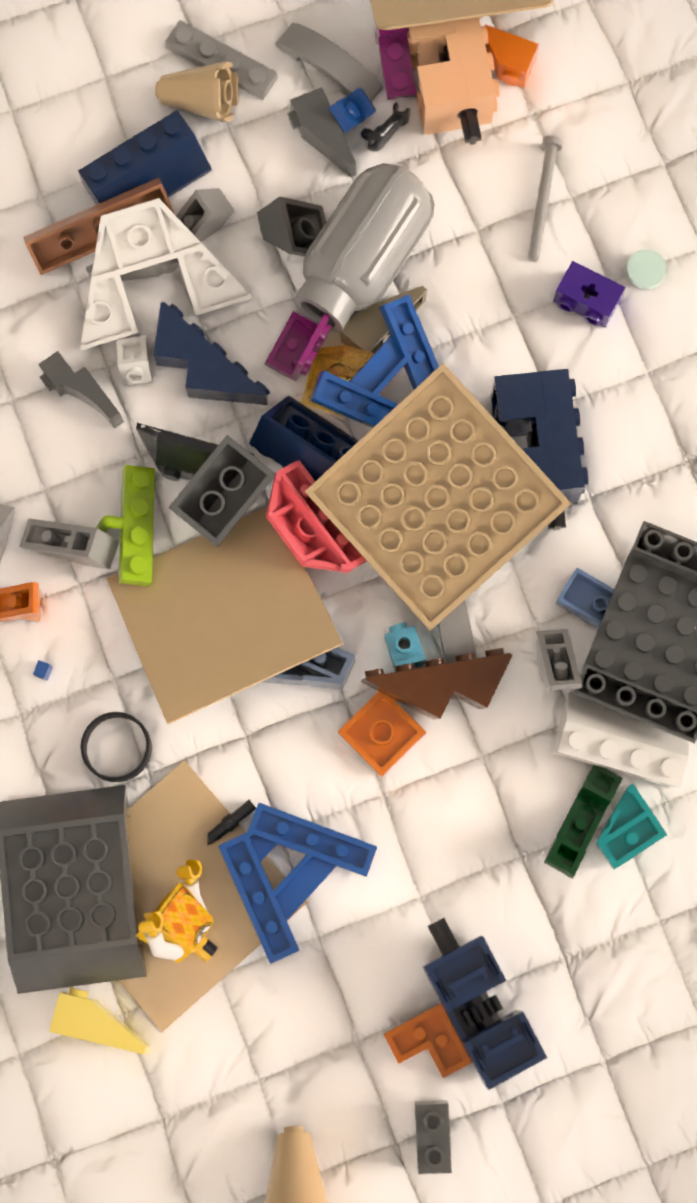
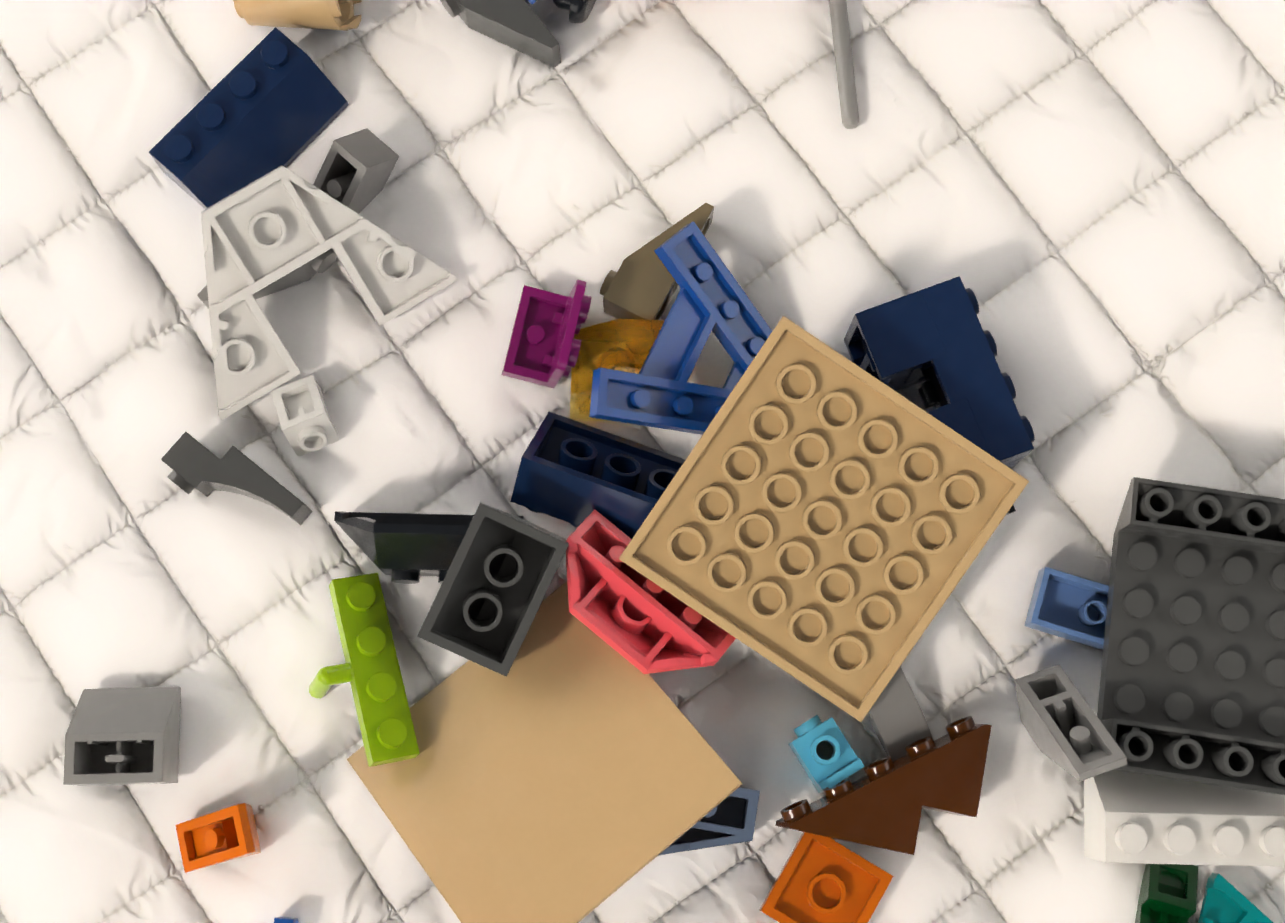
camera: 20 degrees left, 0 degrees up
(70, 542) = (277, 721): light grey slope -> none
(78, 234) = (173, 245): nougat piece -> none
(209, 371) = (421, 403): dark blue slope -> none
(291, 224) = (496, 161): dark grey slope -> none
(364, 244) = (606, 162): light grey piece -> none
(582, 281) = (969, 155): dark purple brick -> none
(646, 269) = (1016, 101): light aqua piece -> none

